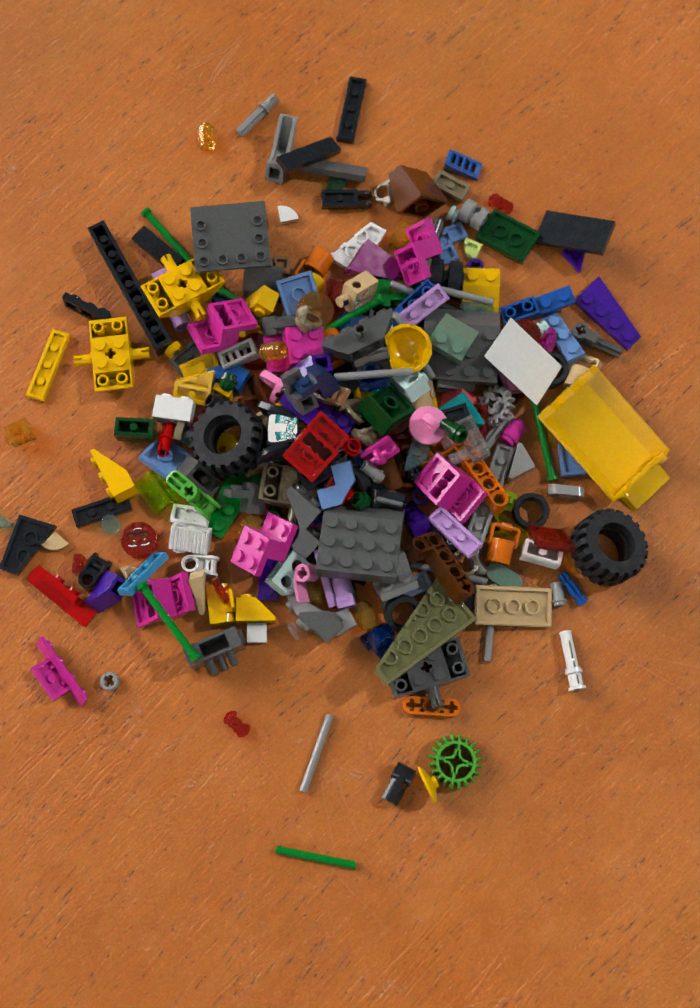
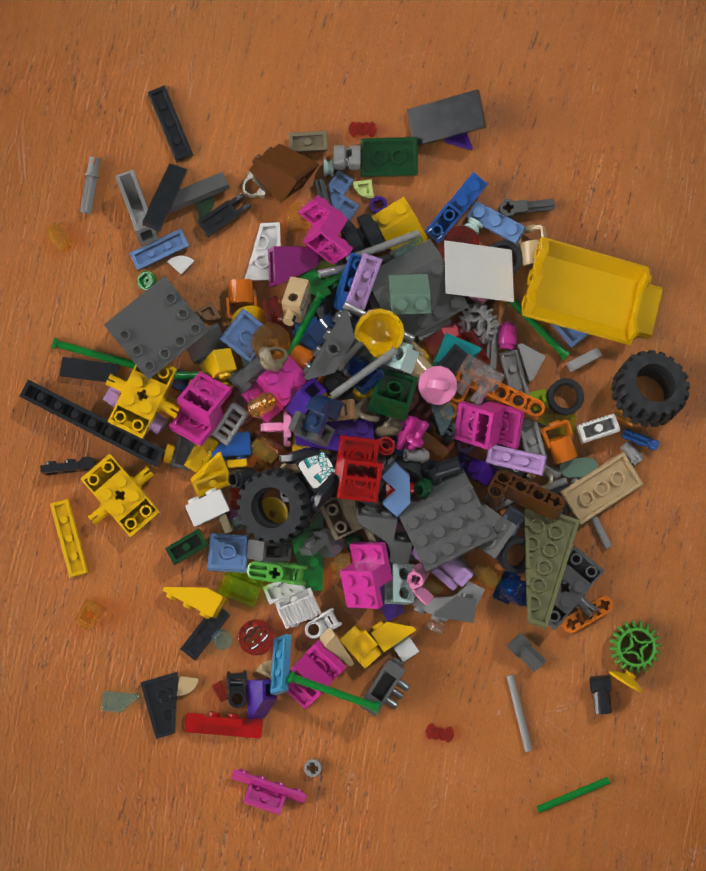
camera: 30 degrees left, 10 degrees up
(165, 439) = (219, 537): red pin -> none
(220, 590) = (355, 636): clear red piece -> none
(227, 381) = (239, 455): dark green plate -> none
(251, 392) = (265, 450): none -> clear yellow brick
(277, 193) = (159, 249): none -> medium blue plate
(356, 699) = (523, 648): none -> dark grey piece
(454, 431) = (466, 379): dark green cone -> none
(455, 169) = (301, 122): blue slope -> none
(549, 339) = (486, 233): magenta tile -> none
(551, 539) = (598, 413): clear red tile -> none
(573, 670) = (683, 509): white pin -> none
(604, 310) = (516, 172): dark purple wing -> none

